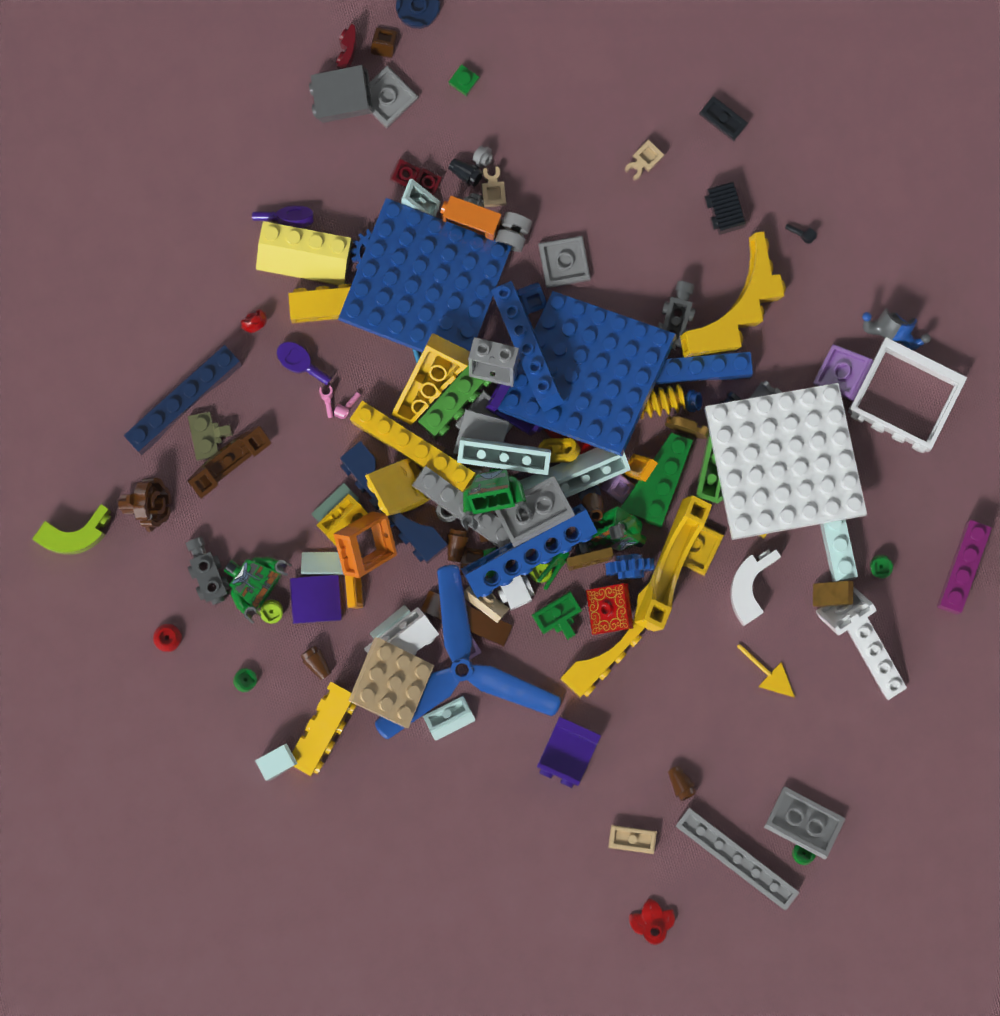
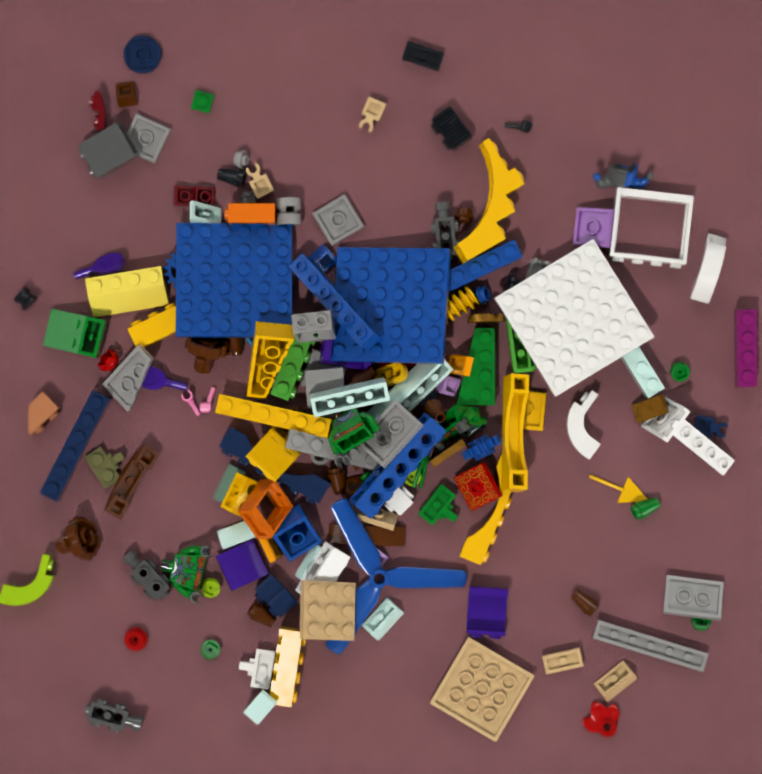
camera: 20 degrees left, 5 degrees up
(106, 709) = (108, 716): none -> dark grey brick
(158, 349) = (40, 412): none -> nougat slope
(189, 220) = (25, 298): none -> black wheel
(229, 278) = (75, 333): none -> green slope
(270, 346) = (129, 376): none -> light grey wing
(292, 721) = (259, 668): none -> white hinge
(340, 647) = (275, 595): none -> dark blue brick
(364, 348) = (206, 351): none -> reddish brown piece
(388, 587) = (296, 534): none -> blue slope
(399, 354) = (235, 346): none -> reddish brown cone
(530, 837) = (482, 689): none -> tan plate
(531, 440) = (364, 375): none -> reddish brown cone
(683, 884) = (615, 681): none -> tan slope
(705, 307) = (464, 215): none -> reddish brown plate
(785, 703) = (644, 508): none -> green cone
(890, 638) = (707, 426): none -> dark blue plate
(954, 464) = (709, 268): none -> white arch

